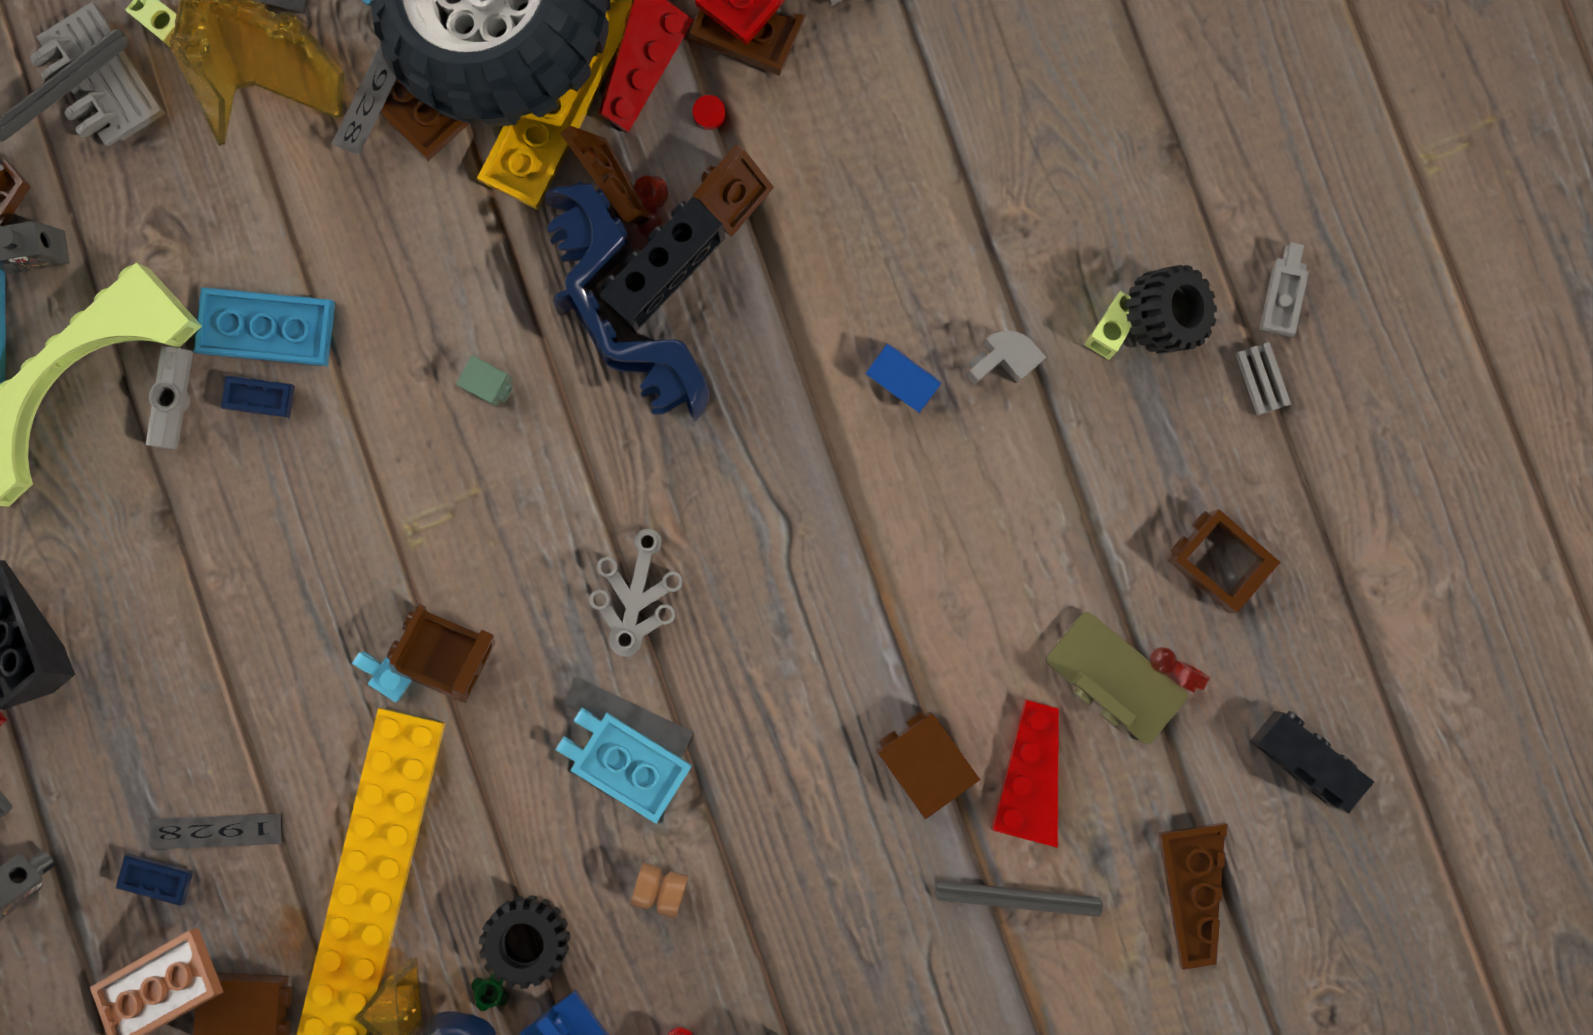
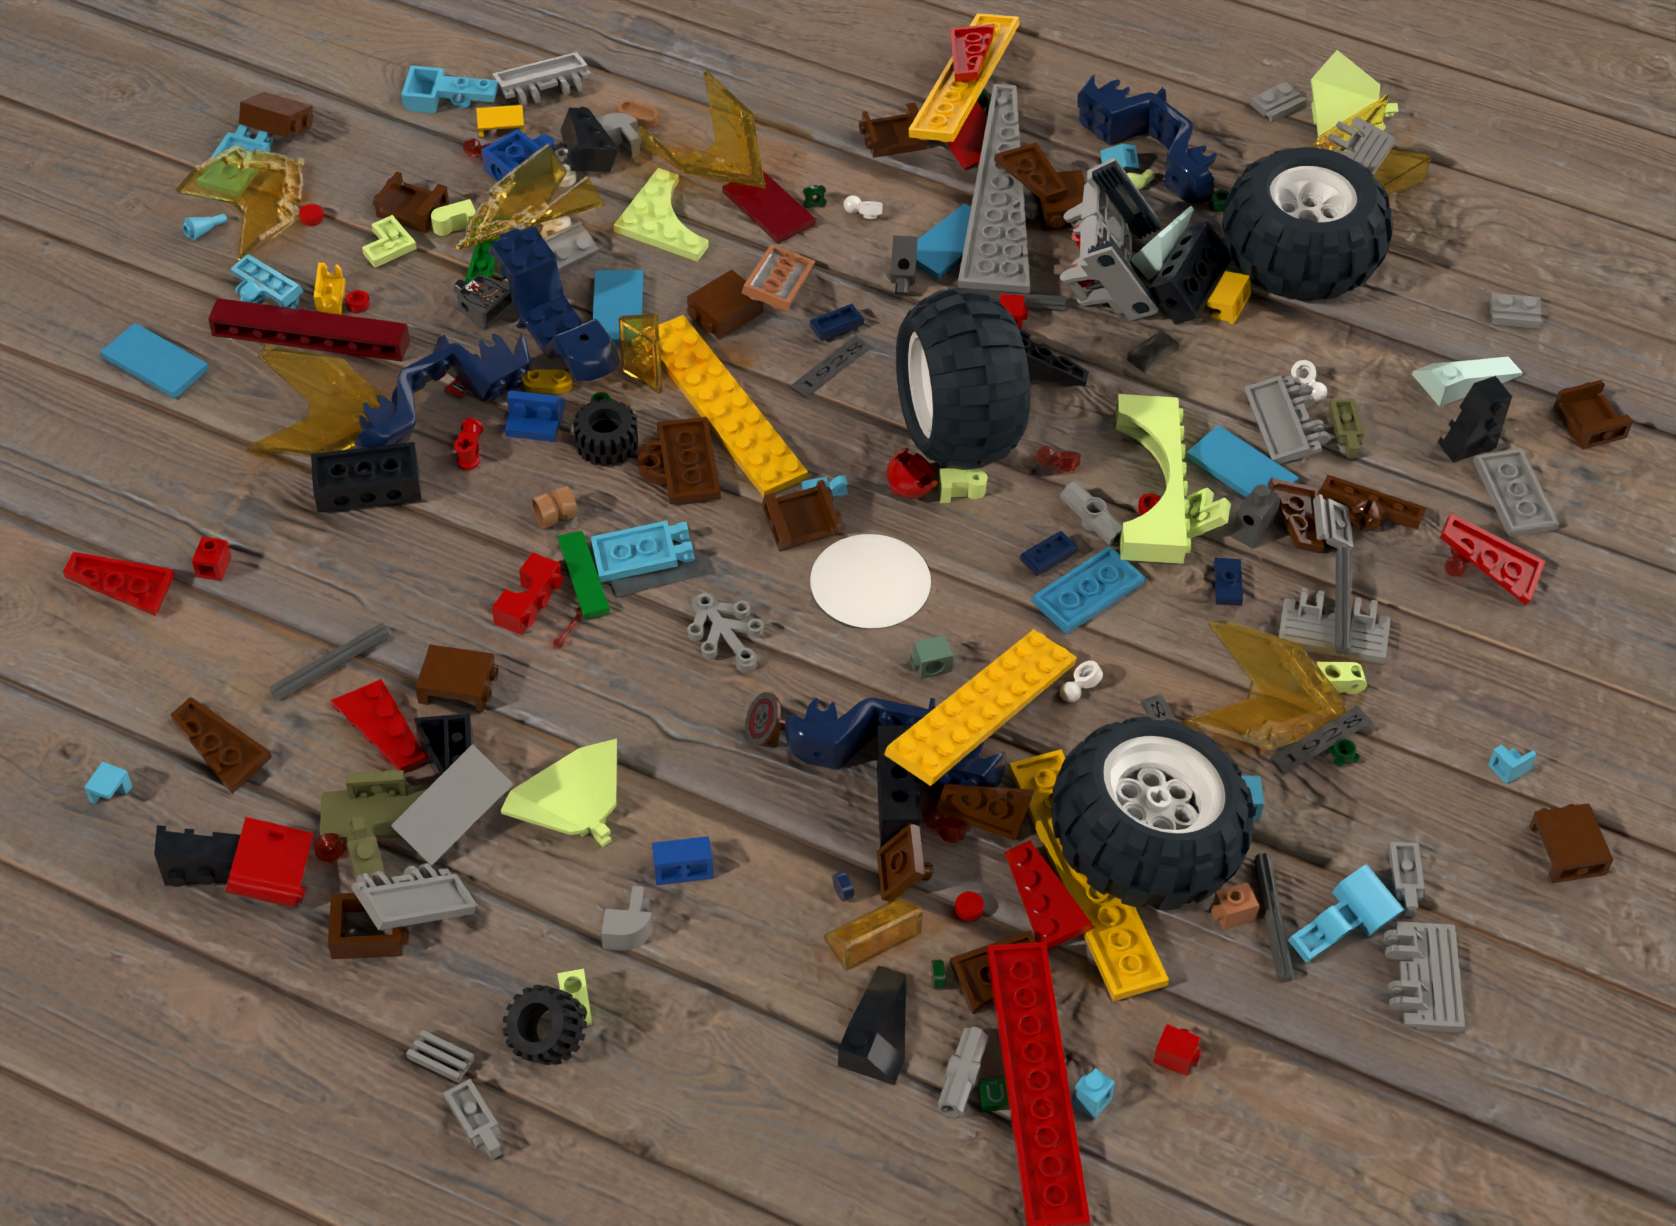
camera: 135 degrees right, 35 degrees down
(76, 291) = (1205, 514): none -> yellowish green plate
(103, 363) = (1147, 502): none -> red tile
(123, 487) = (1065, 459): none -> clear red plate
(131, 214) = (1228, 581): none -> dark blue plate
(141, 624) = (962, 378): none -> black wheel
(243, 548) = (961, 483): none -> yellowish green leg
(292, 600) = (910, 475): none -> red cylinder
(399, 234) = (1086, 676): none -> white plate
(446, 529) = (870, 581): none -> white sticker
(480, 837) = (682, 461): none -> reddish brown plate
(516, 258) = (980, 707): none -> yellow plate
(702, 785) = (583, 575): none -> green tile
(703, 450) = (764, 720): none -> shield
(742, 743) = (558, 642): none -> clear red hinge
(746, 811) = (519, 610): none -> red arch
(796, 223) = (843, 886): none -> dark blue tile
(802, 70) = (938, 974): none -> dark green tile
(812, 159) = (875, 932): none -> clear yellow slope
(900, 69) = (877, 1029): none -> black wedge
(941, 539) = (571, 793): none -> yellowish green panel
(1009, 672) = (444, 739): none -> black wedge
(1060, 607) = (452, 805): none -> light grey tile
(1172, 534) = (413, 896): none -> light grey hinge
(1174, 627) = (363, 849): none -> olive hinge
(1264, 699) = (270, 863): none -> red door
(1331, 931) = (106, 781): none -> medium azure panel

